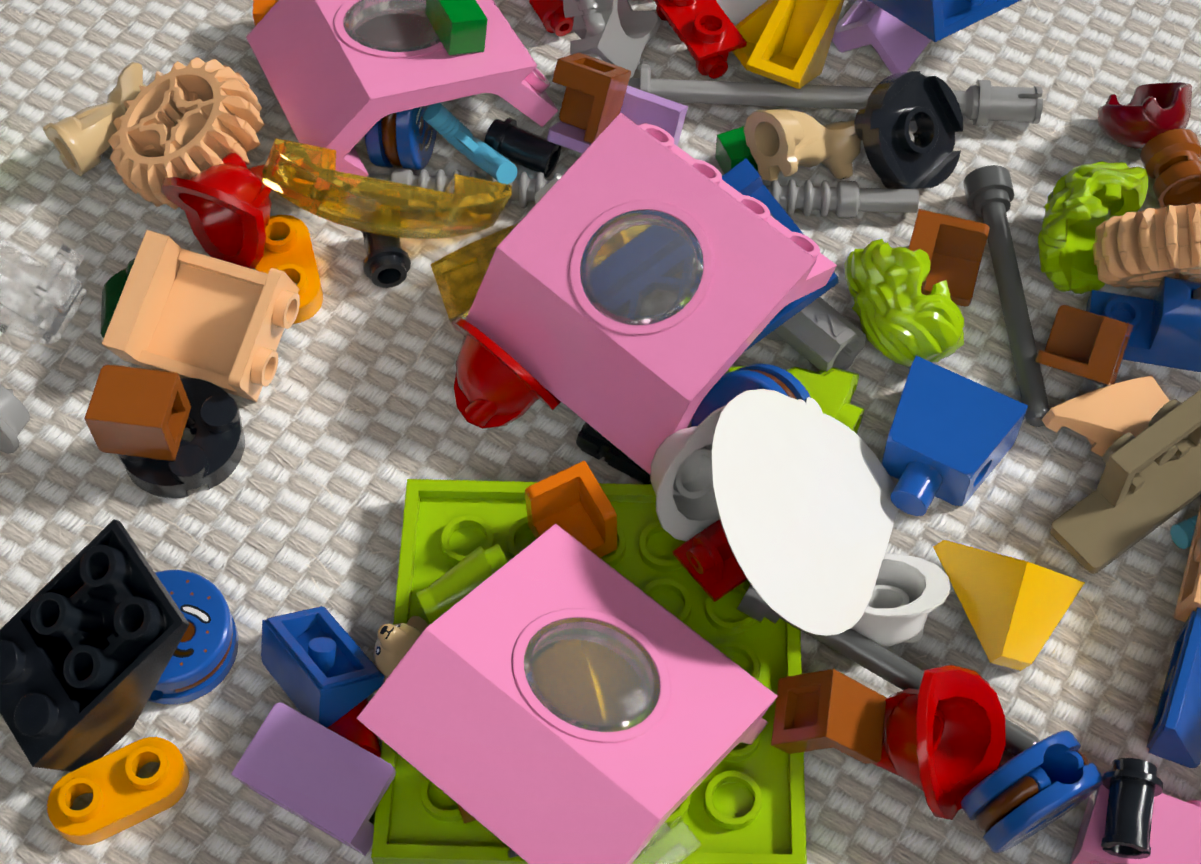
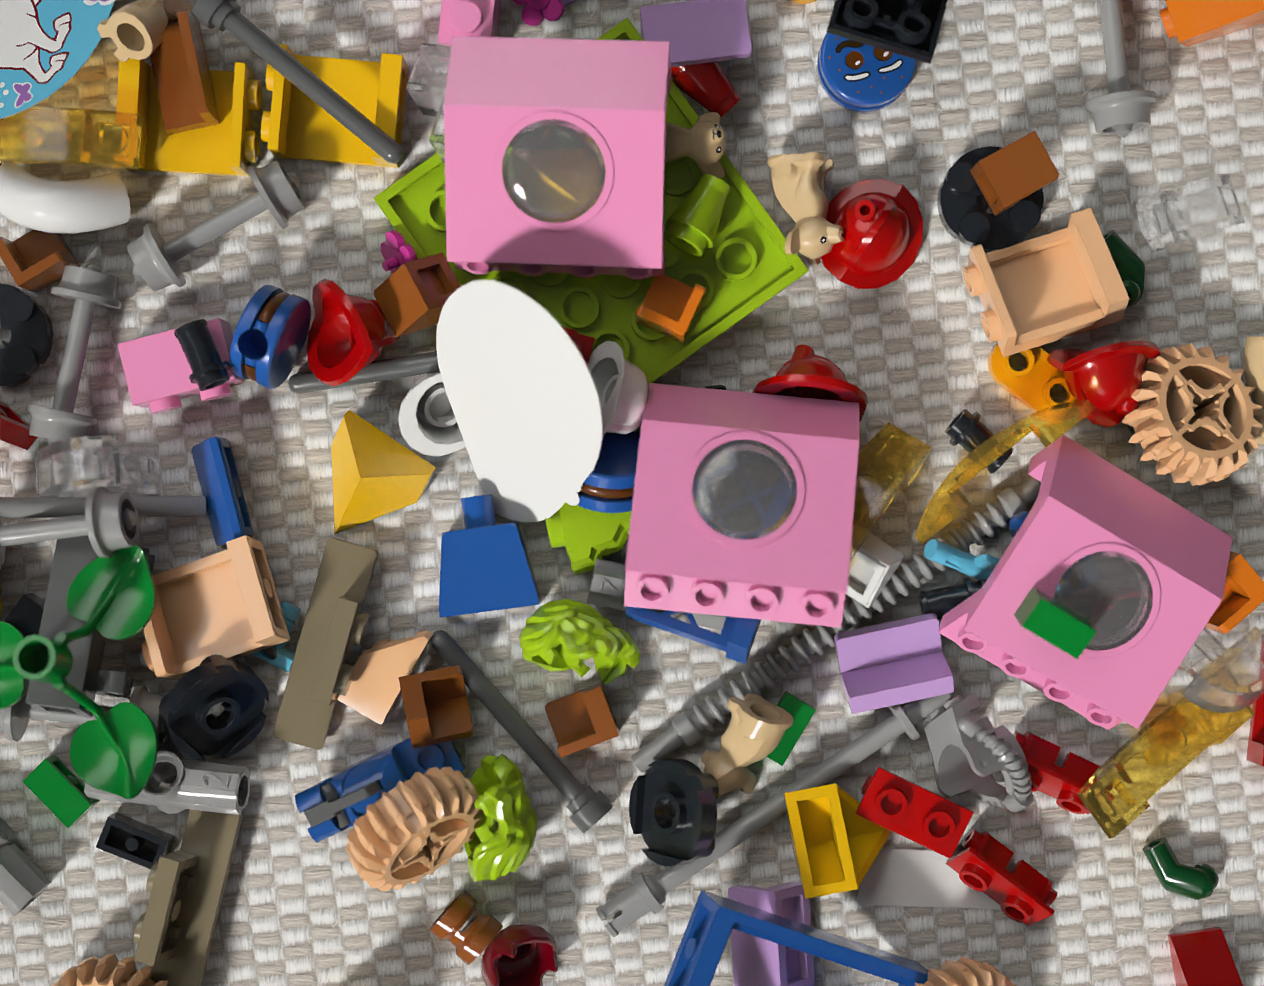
camera: 145 degrees right, 30 degrees up
(317, 664) = (757, 108): blue slope -> none
(318, 485) = (880, 233): none -> red helmet
(351, 551) = (802, 194): none -> tan animal
(592, 92) = (924, 666): dark orange panel -> none
(821, 787) = (396, 251): none -> dark pink plant

